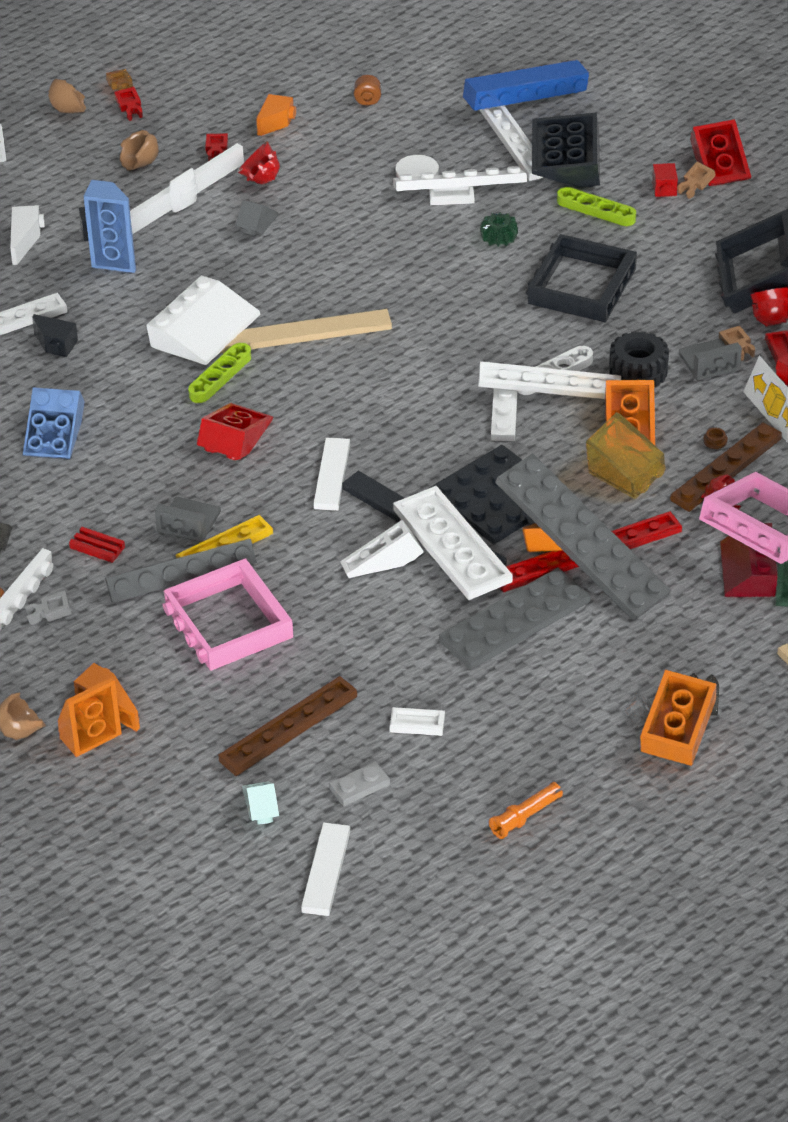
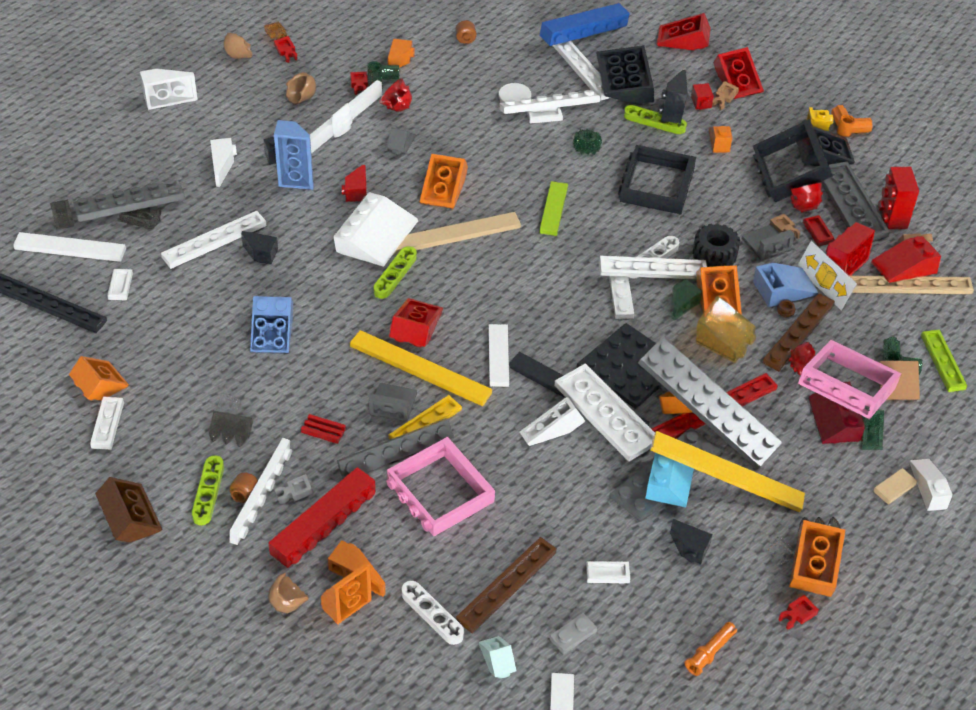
camera: 10 degrees left, 5 degrees up
(77, 639) = (322, 517): none -> red brick
(187, 267) = (355, 185): none -> red slope
(194, 749) = (434, 611): none -> white beam
(231, 483) = (421, 368): none -> yellow tile
(247, 135) = (380, 72): none -> clear green piece
(302, 267) = (444, 181): none -> orange slope
(439, 307) = (553, 208): none -> lime tile
(515, 613) = (669, 481): none -> medium azure slope
(527, 693) = (690, 541): none -> black slope
(583, 419) = (684, 298): none -> clear green slope
(587, 614) = (727, 471): none -> yellow tile
(621, 179) = (674, 99): none -> black slope
(645, 776) = (799, 610): none -> red plate
(661, 102) = (687, 33): none -> red slope
(677, 232) = (720, 138): none -> orange slope
(718, 406) = (782, 282): none -> medium blue slope

